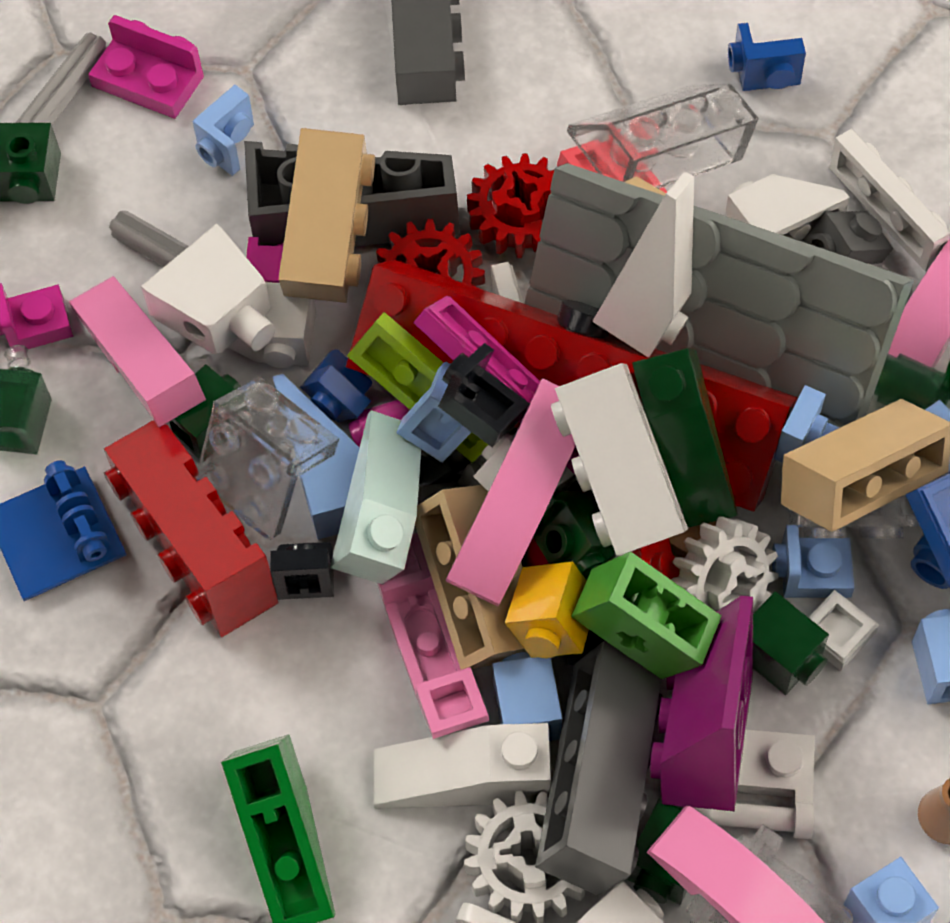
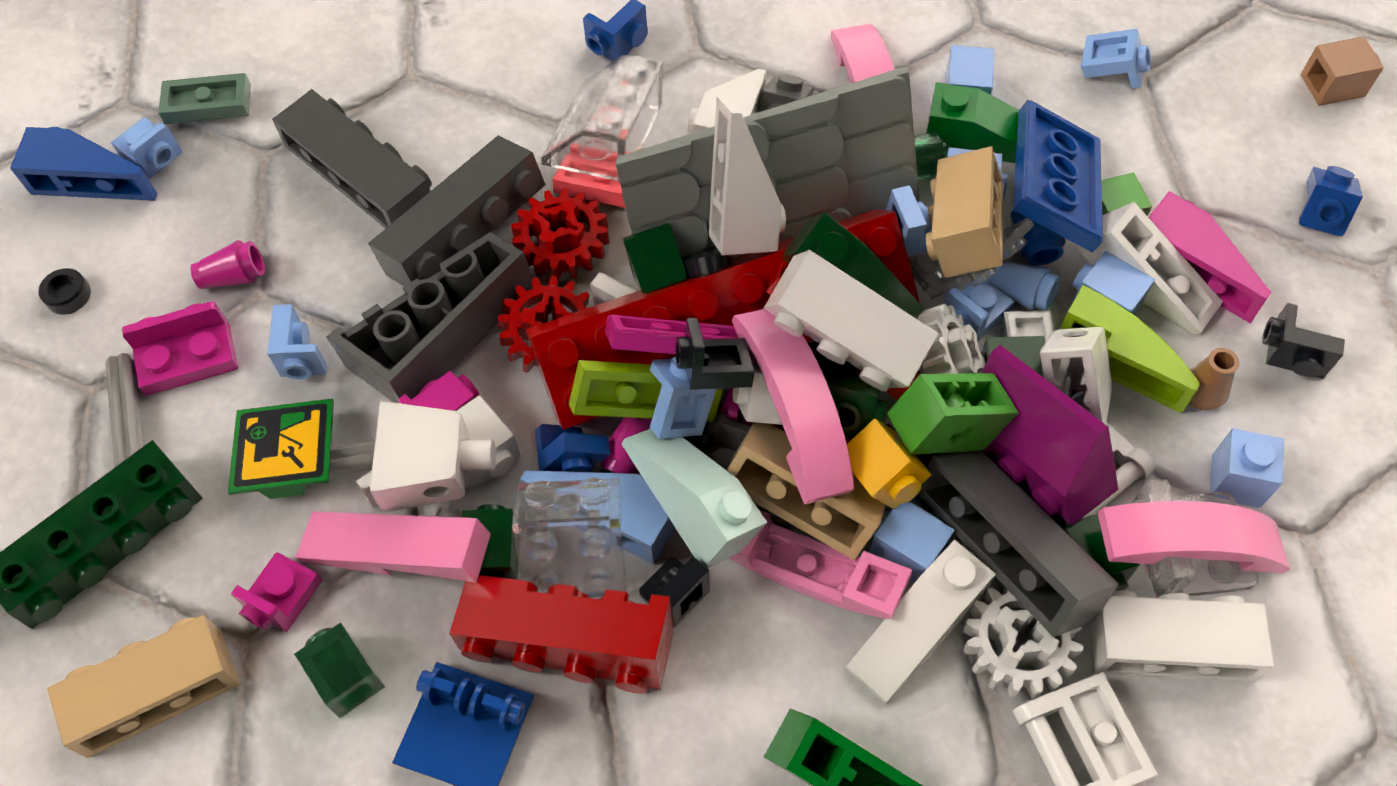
camera: 45 degrees left, 0 degrees up
(17, 356) = (297, 630): clear piece -> none
(136, 206) = (281, 448): none -> piece
(244, 27) = (229, 266): none -> dark pink cone
(326, 215) = (453, 334): tan brick -> none
(461, 118) = (458, 211): none -> dark grey brick
(540, 281) = (655, 258): none -> dark green slope
(814, 694) = (1079, 365): none -> white torso
(881, 583) = (1027, 284): none -> light blue cone
(888, 198) = (778, 56): white plate -> none
(904, 712) = (1135, 352): none -> lime slope

